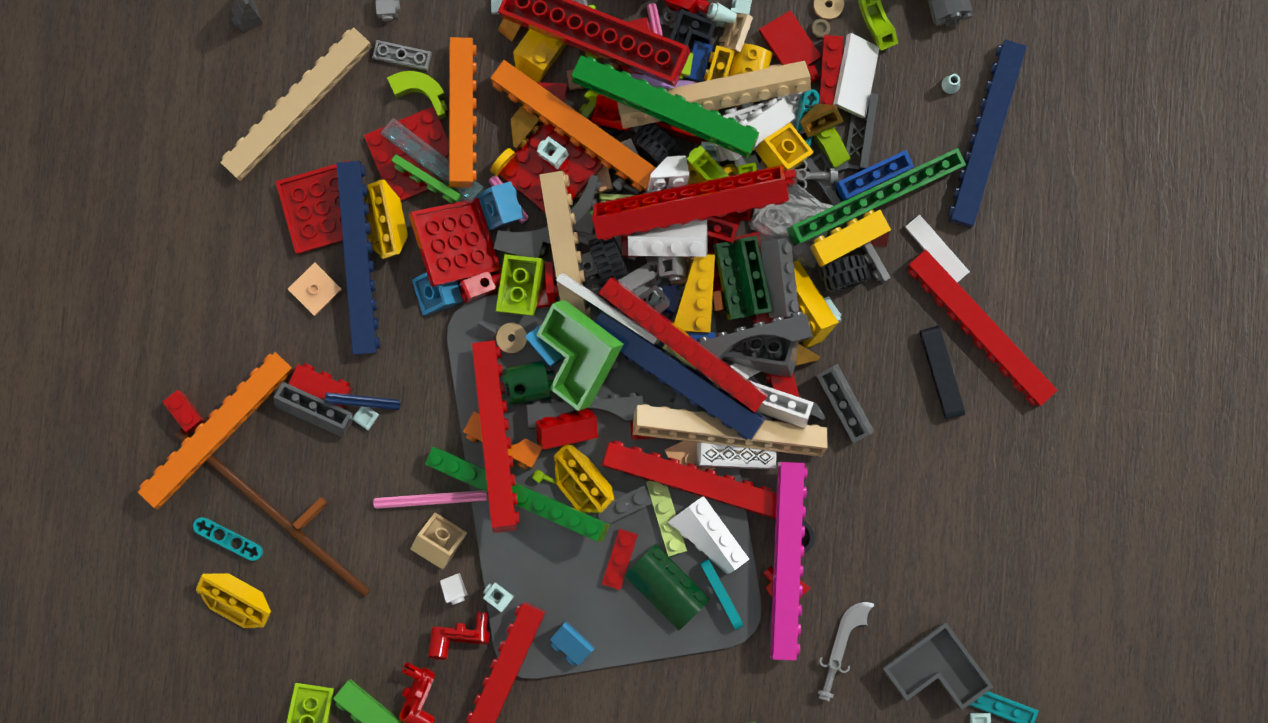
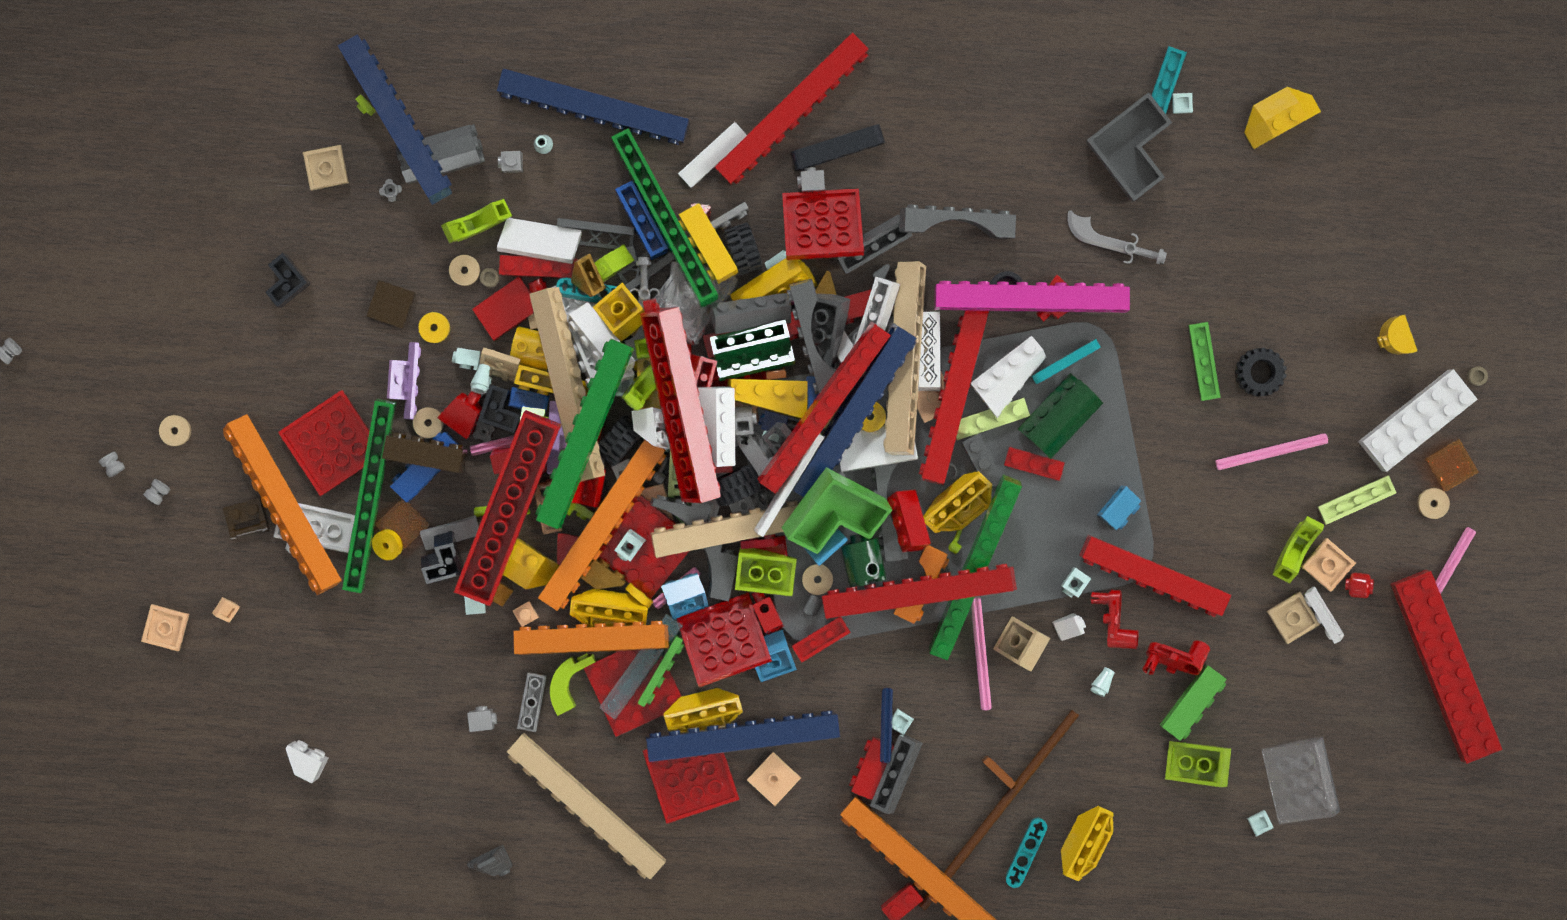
camera: 90 degrees left, 5 degrees up
(396, 622) = (1102, 682): none -> light aqua cone
(451, 339) = (821, 639): none -> red plate
(489, 52) = (525, 613): none -> light nougat plate
(491, 129) = (607, 607): none -> yellow wedge
(636, 390) = (869, 452): none -> white tile
(668, 401) = (878, 421): none -> yellow piece
(861, 527) = (994, 225): none -> dark grey arch
(866, 353) = (822, 224): none -> red plate
(909, 345) = (811, 180): none -> light grey brick
(934, 52) = (511, 162): none -> light grey brick

